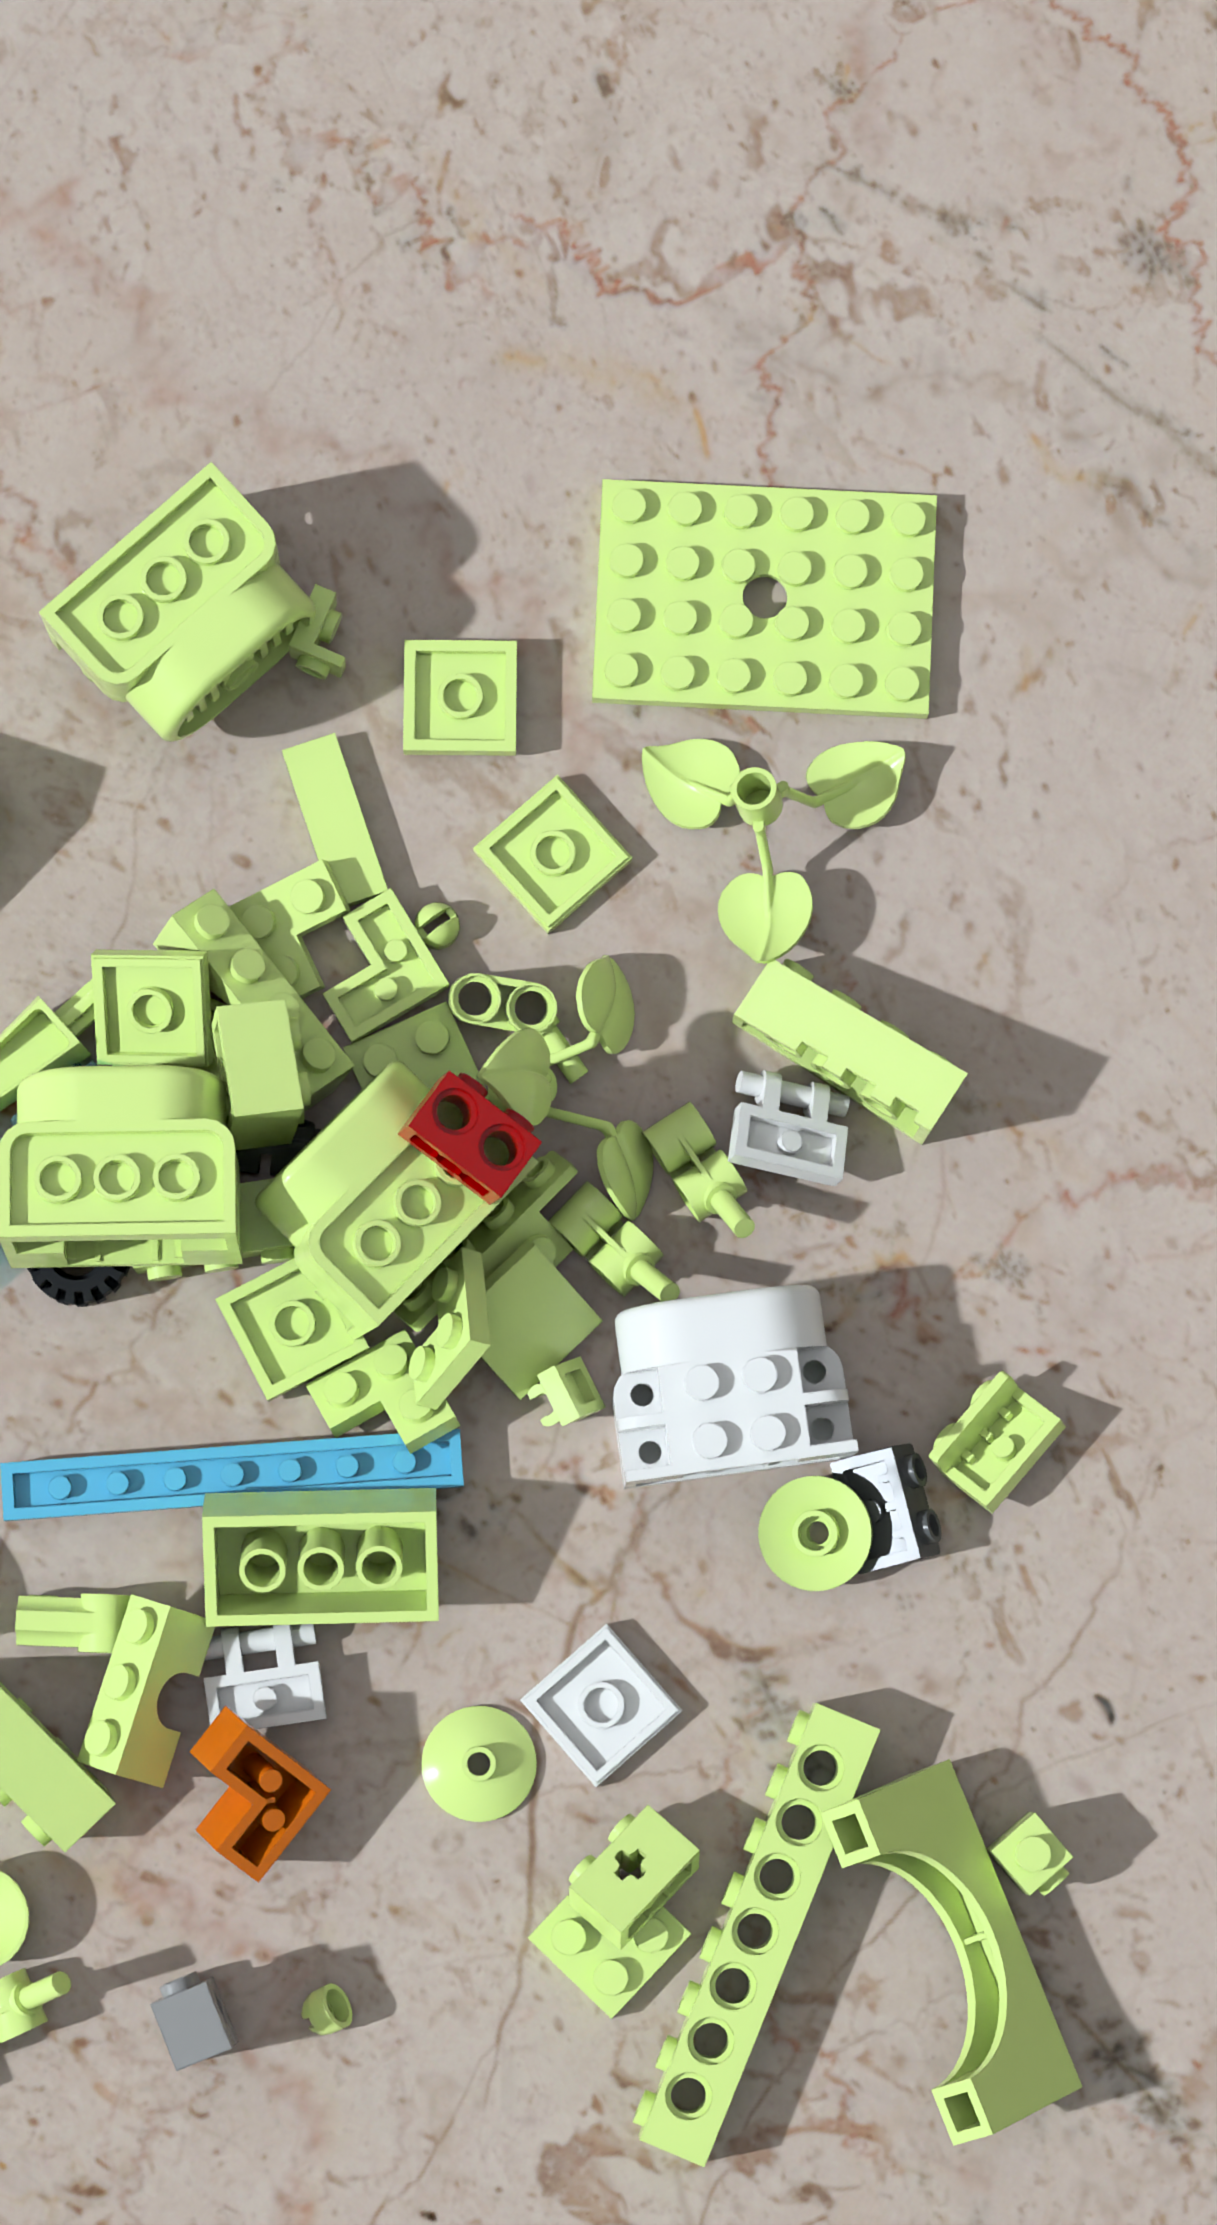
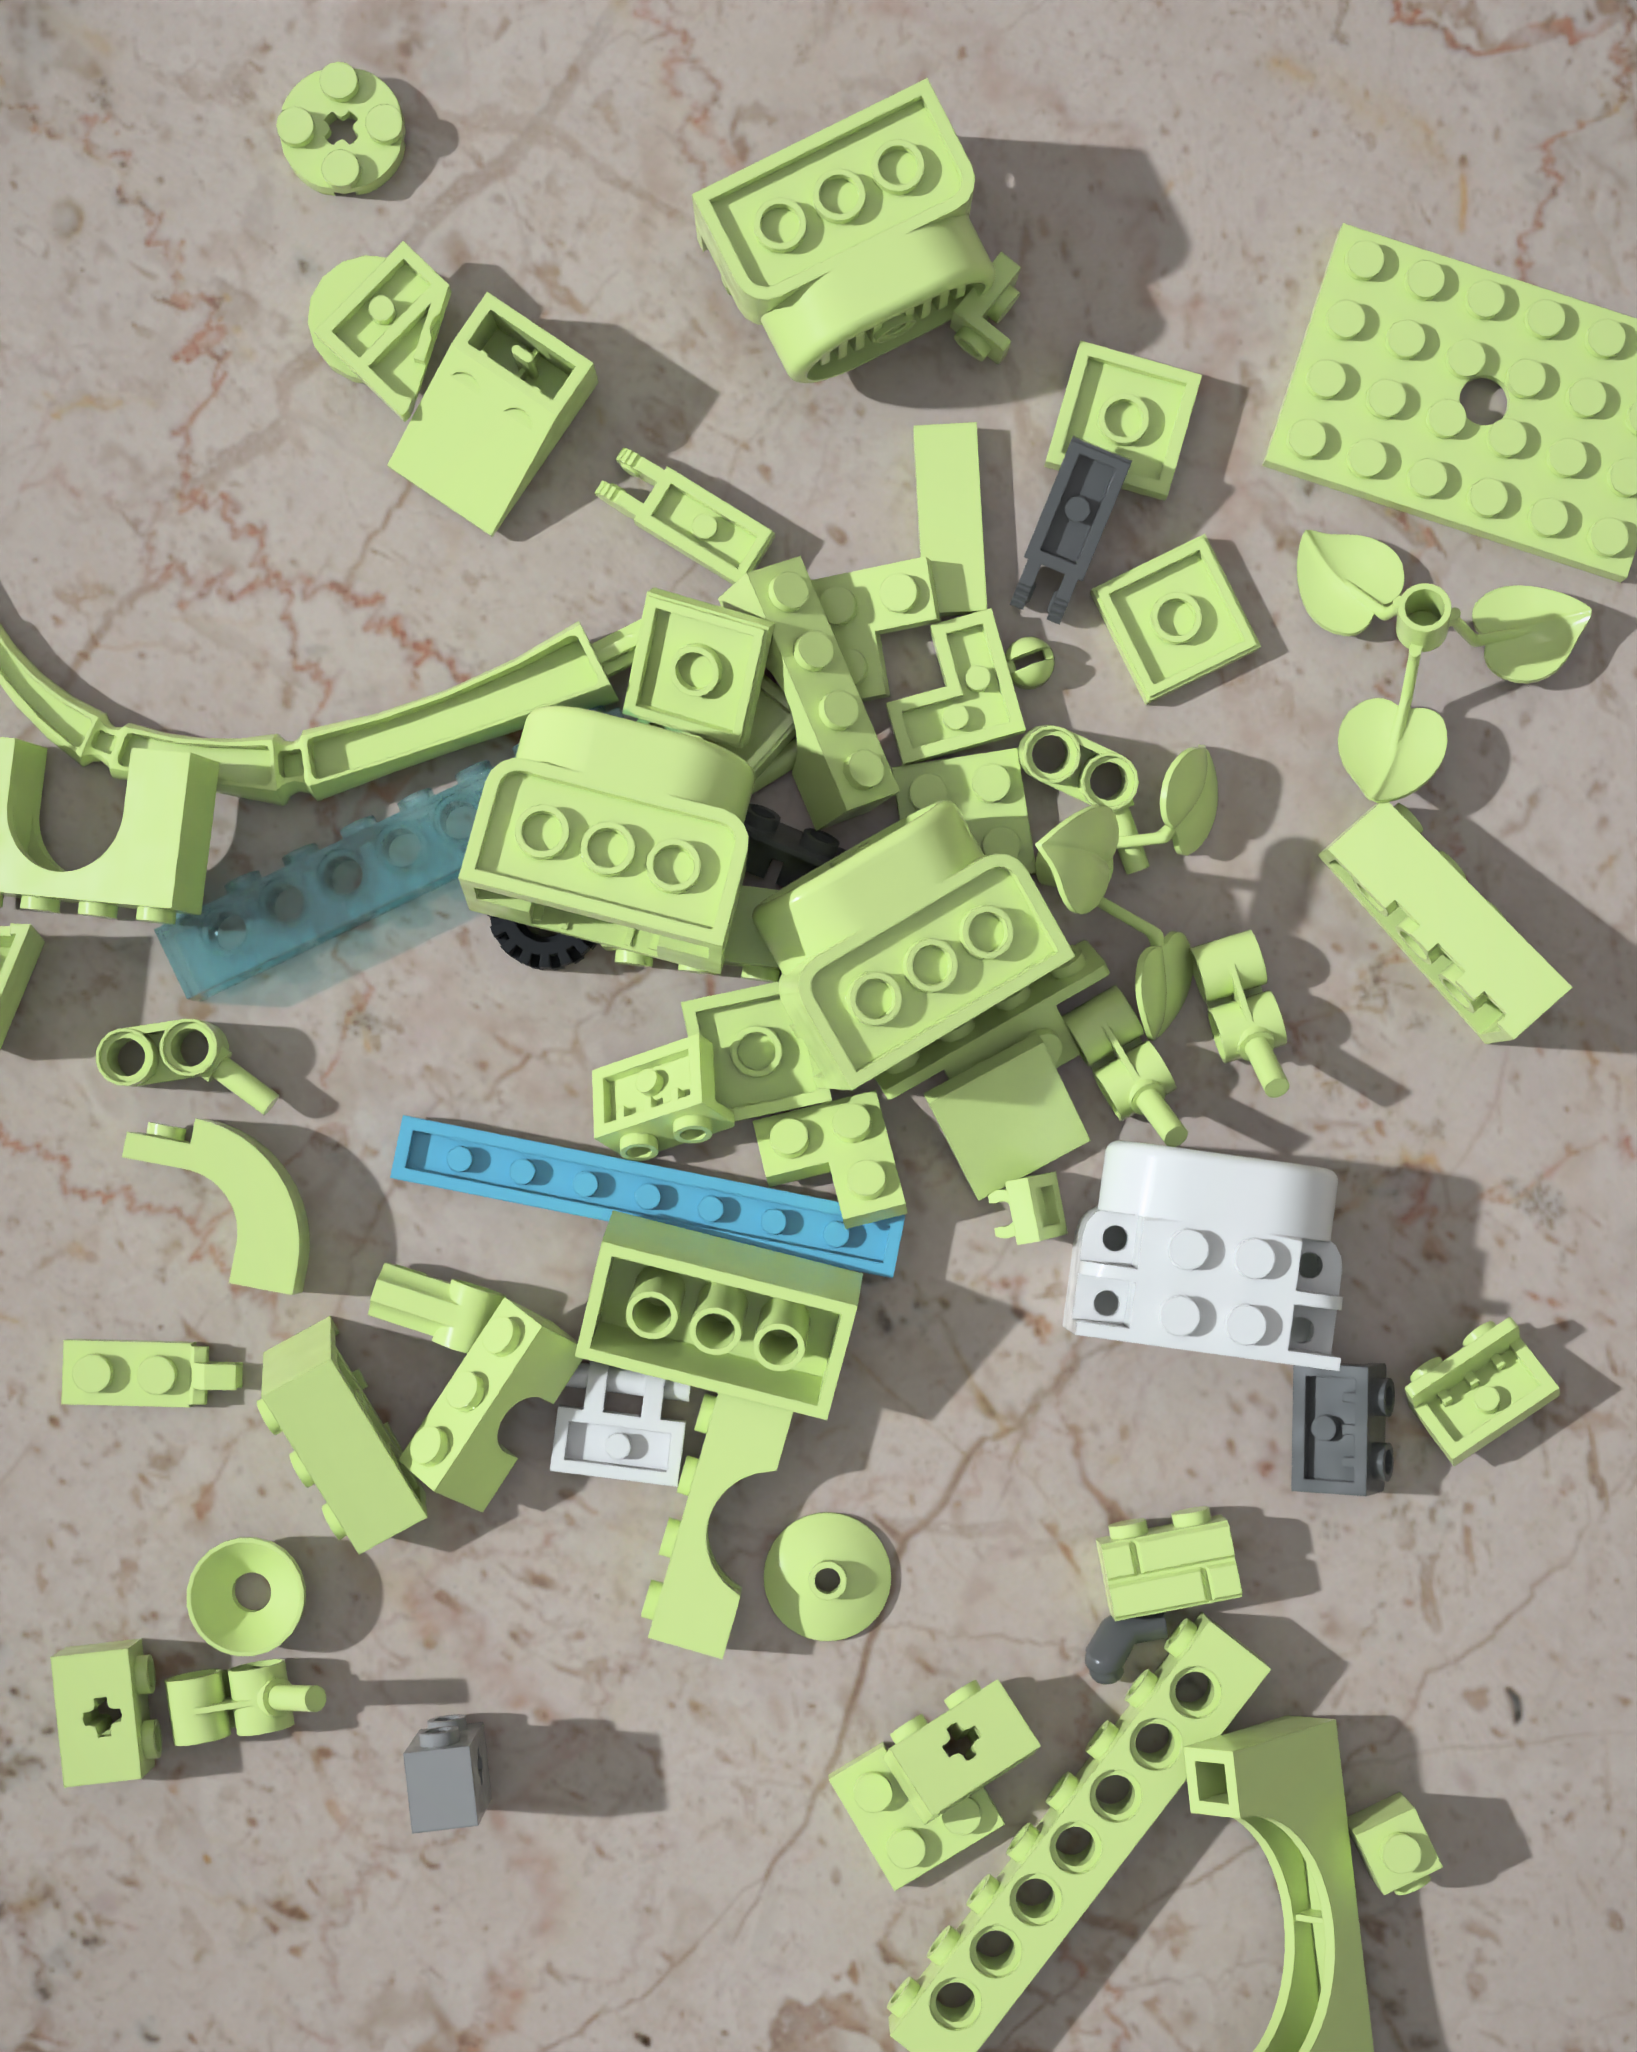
camera: 20 degrees right, 5 degrees up
(110, 882) = (690, 519): none -> yellowish green hinge
(219, 1388) = (658, 1100): none -> yellowish green bracket
(260, 1072) = (797, 771): yellowish green brick -> none
(266, 1794) = (589, 1554): orange brick -> none
(327, 2010) = (594, 1795): yellowish green hinge -> none
(367, 1811) = (697, 1597): none -> yellowish green arch
(439, 796) = (1072, 521): none -> dark grey hinge
(460, 1333) = (938, 1119): yellowish green plate -> none
(462, 1150) = (998, 922): red brick -> none
(601, 1705) = (975, 1551): white tile -> none
(744, 1744) = (1115, 1641): none -> dark grey arm
(769, 1668) = (1168, 1564): none -> yellowish green brick
(785, 1141) = (1344, 1003): white plate -> none
(787, 1539) = (1234, 1458): yellowish green dish -> none

